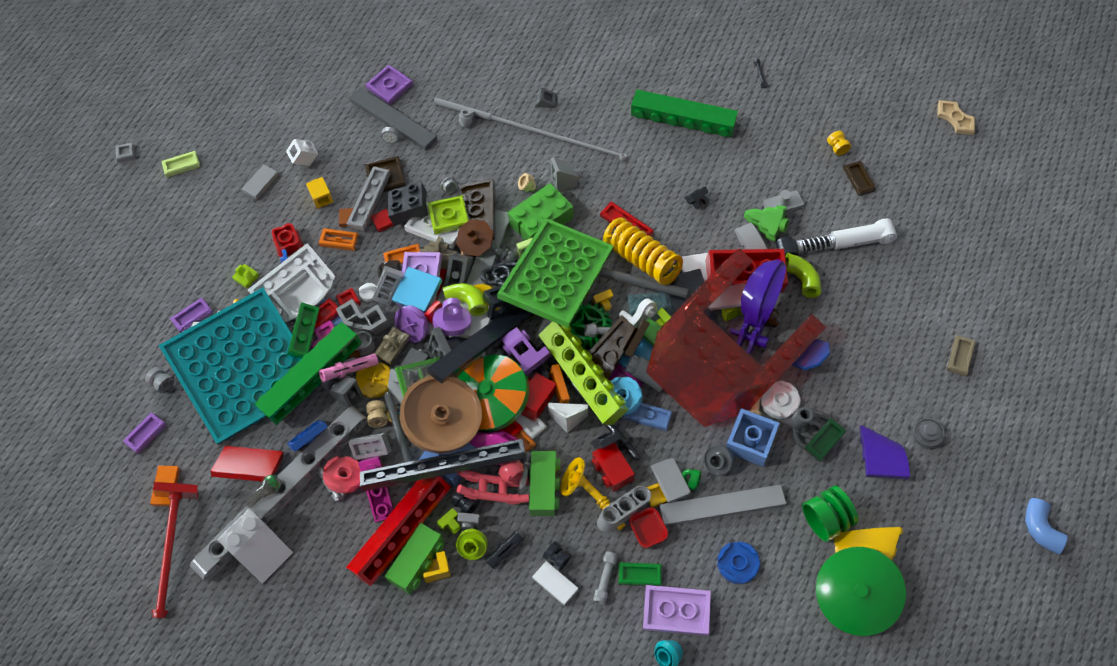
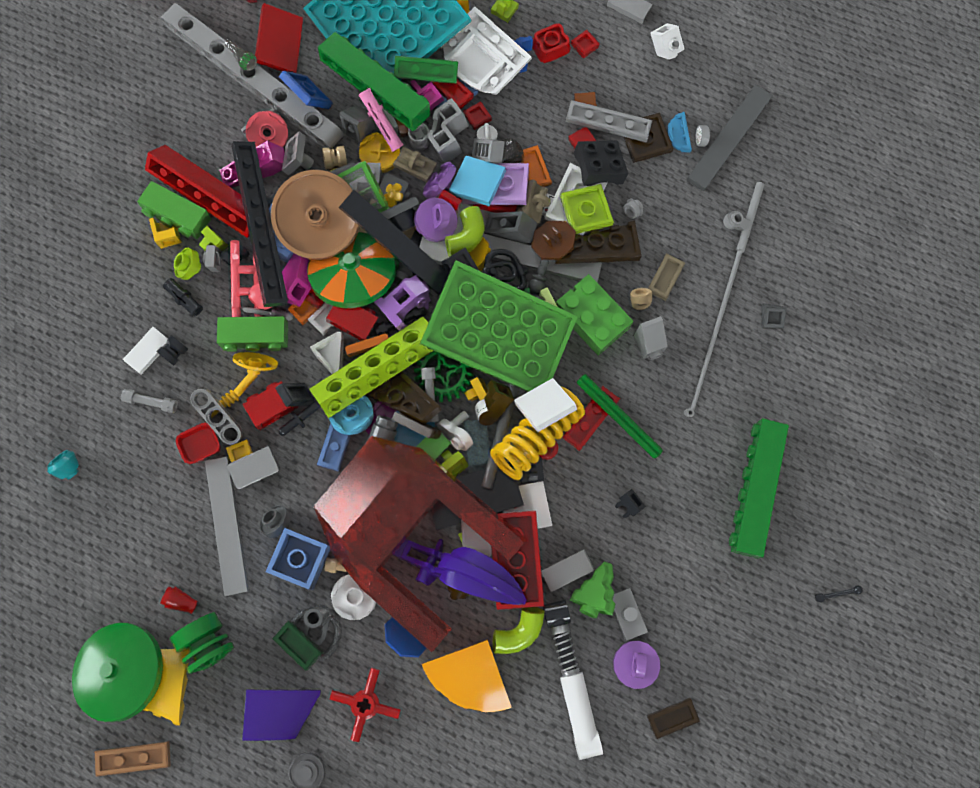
camera: 80 degrees right, 15 degrees up
(255, 545) = (187, 54): white slope -> none
(291, 215) = (585, 44): none -> red tile
(319, 192) = (614, 67): yellow brick -> none
(338, 242) = (553, 112): orange tile -> none
(383, 151) = (678, 133): none -> dark azure tile
(389, 84) = (781, 129): medium lavender tile -> none
(422, 355) = (393, 194): none -> yellow plant
(508, 166) = (666, 276): none -> dark tan tile
(617, 283) = (494, 403): none -> dark brown leg
(622, 238) = (545, 405): none -> white tile
(626, 200) = (619, 416): none -> green axle
(639, 574) = (153, 436): green tile -> none
(677, 610) = (110, 474): lavender plate -> none
(694, 479) = (255, 492): green tile -> none
(734, 567) = (168, 538): blue tile -> none
(791, 544) = (178, 600): none -> red cone
(821, 199) = (636, 664): none -> medium lavender tile
(839, 143) = (725, 693): yellow wheel -> none
(841, 311) = (469, 678): none -> light orange brick
(874, 391) = (361, 715): none -> red bar
(933, 581) = (132, 758): none -> medium nougat tile

